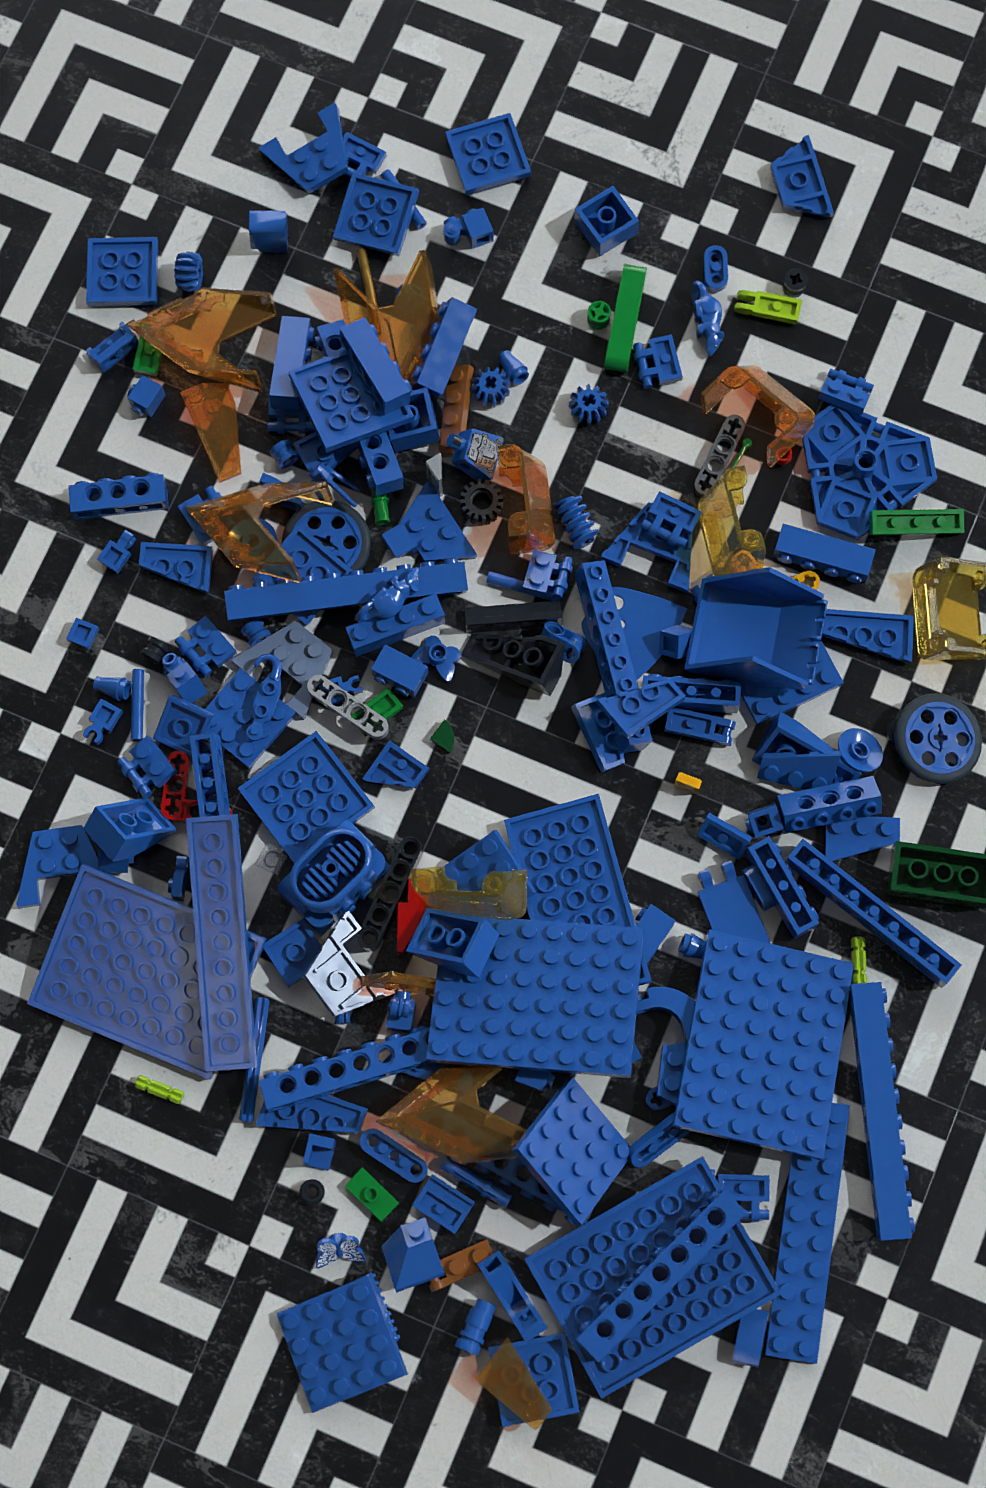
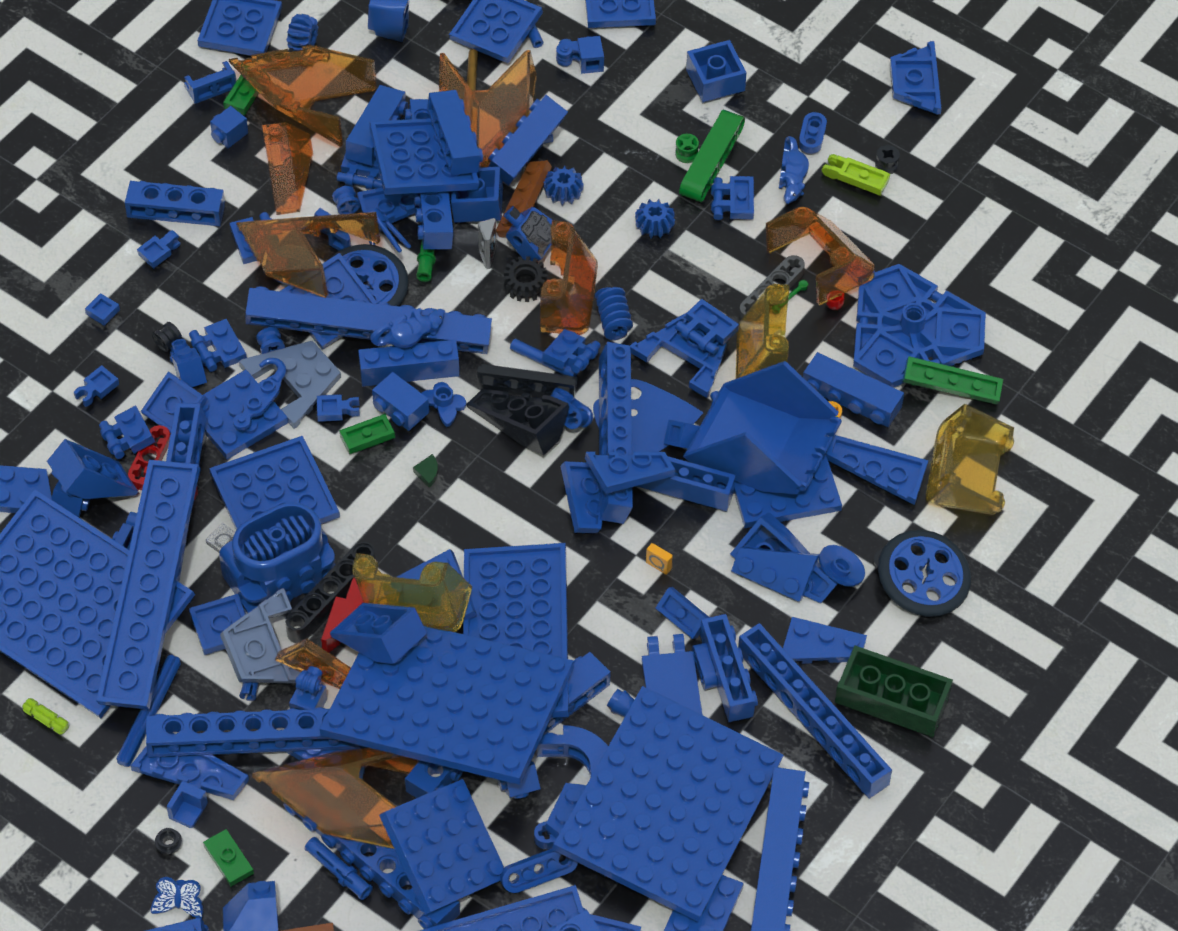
camera: 10 degrees right, 20 degrees down
(115, 687) = (118, 360): blue cone -> none
(137, 705) = (135, 379): blue piece -> none
(179, 562) = (216, 270): blue wing -> none
(349, 705) = (337, 421): light grey beam -> none
(382, 1152) = (257, 817): blue plate -> none
(396, 768) = (371, 485): blue wing -> none
(399, 541) = (434, 292): blue panel -> none
(435, 529) = (472, 291): blue wing -> none
(443, 1204) = (298, 880): blue plate -> none
(515, 370) = (591, 175): blue cone -> none
(699, 726) = (685, 513): blue plate -> none
(772, 824) = (733, 599): blue brick -> none
(829, 804) = (796, 604): blue brick -> none
(844, 396) = (912, 257): blue plate -> none
(859, 960) = (790, 750): lime axle -> none

